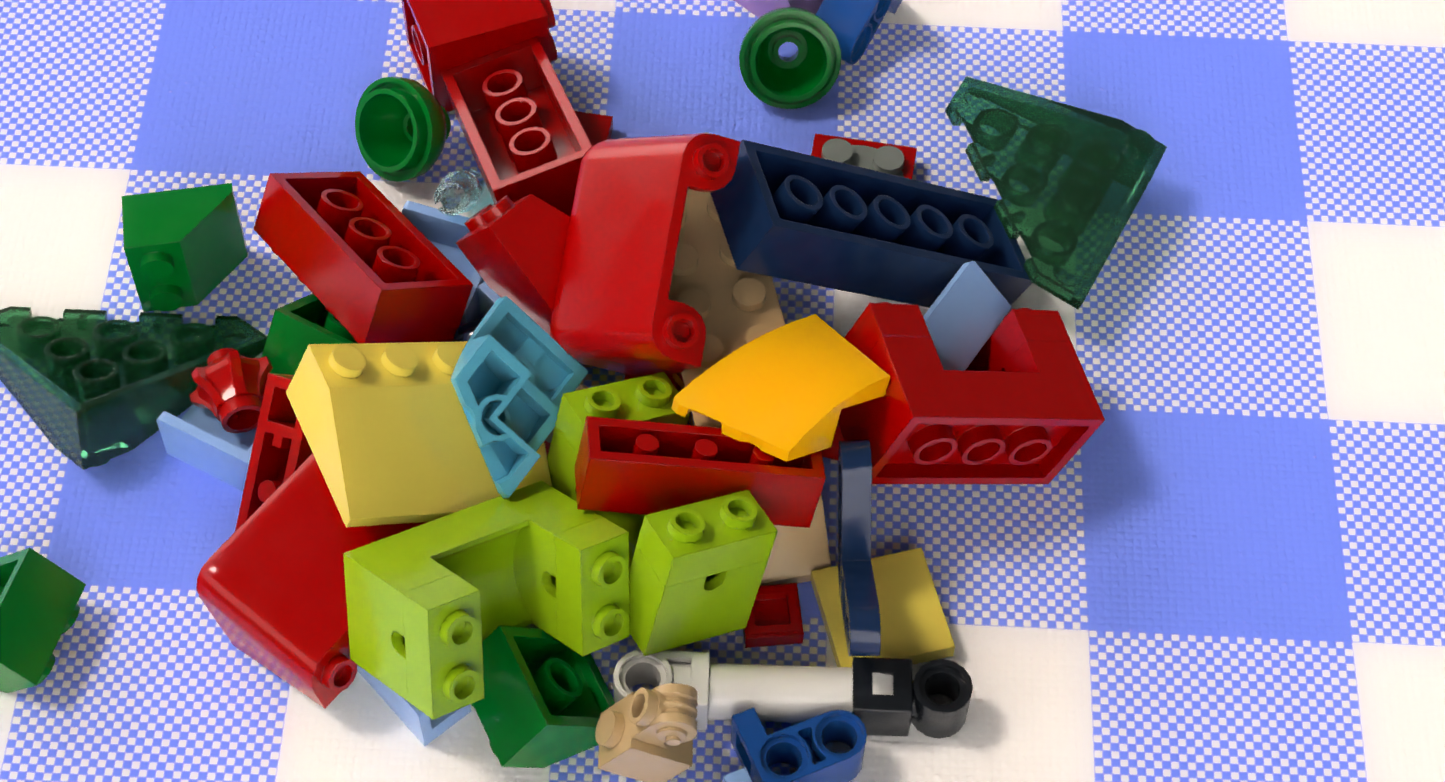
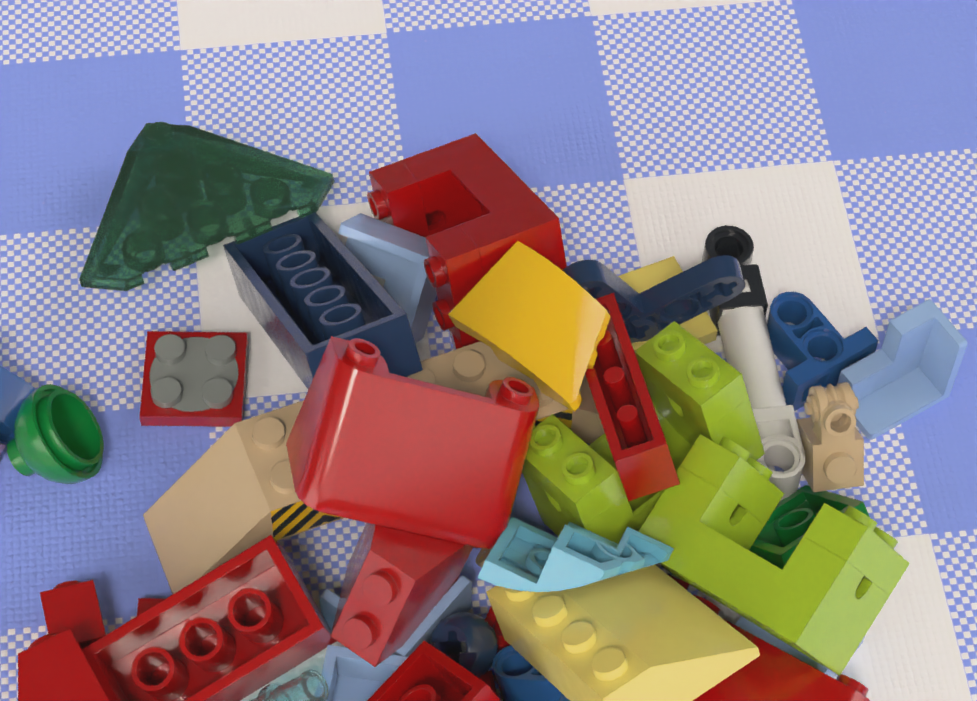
camera: 100 degrees left, 0 degrees up
(593, 65) = (74, 607): none -> red brick

